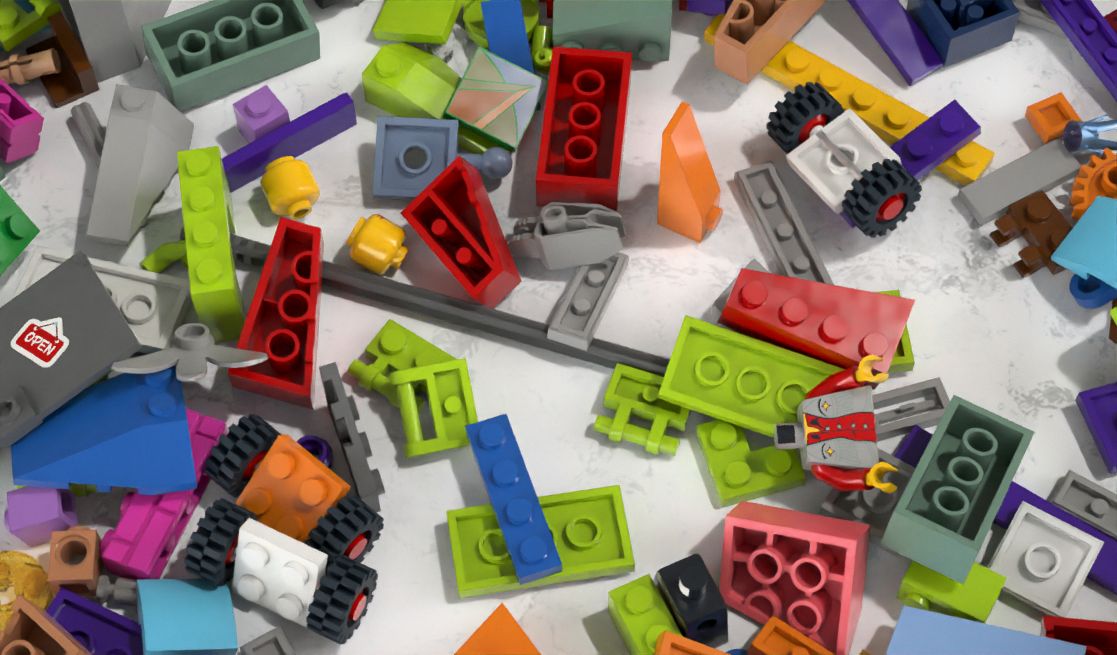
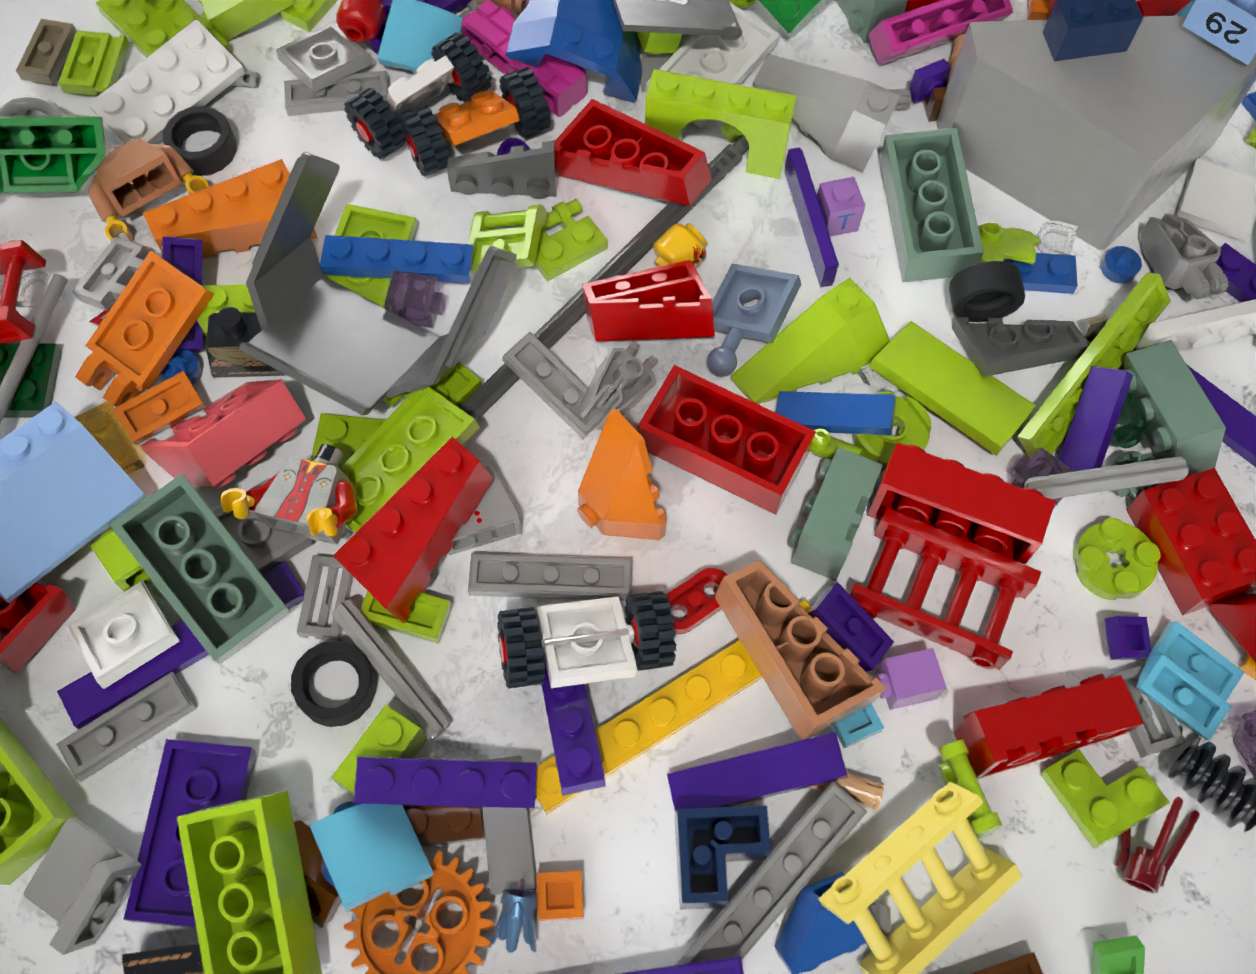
camera: 110 degrees right, 5 degrees up
(60, 84) = (927, 78): none -> dark purple plate
(191, 352) = (617, 77): light grey plant -> none
(289, 187) = (763, 207): yellow head -> none
(496, 99) = (786, 377): tile -> none
(550, 464) = (415, 298): none -> clear purple brick
(648, 468) = (337, 336): none -> dark grey piece
(751, 110) = (692, 600): none -> red plate
(944, 319) = (391, 668): none -> light grey axle
(989, 332) = (311, 662): none -> black tyre
(1025, 215) = (444, 782): none -> dark purple plate
(1028, 287) = (387, 736): none -> lime brick

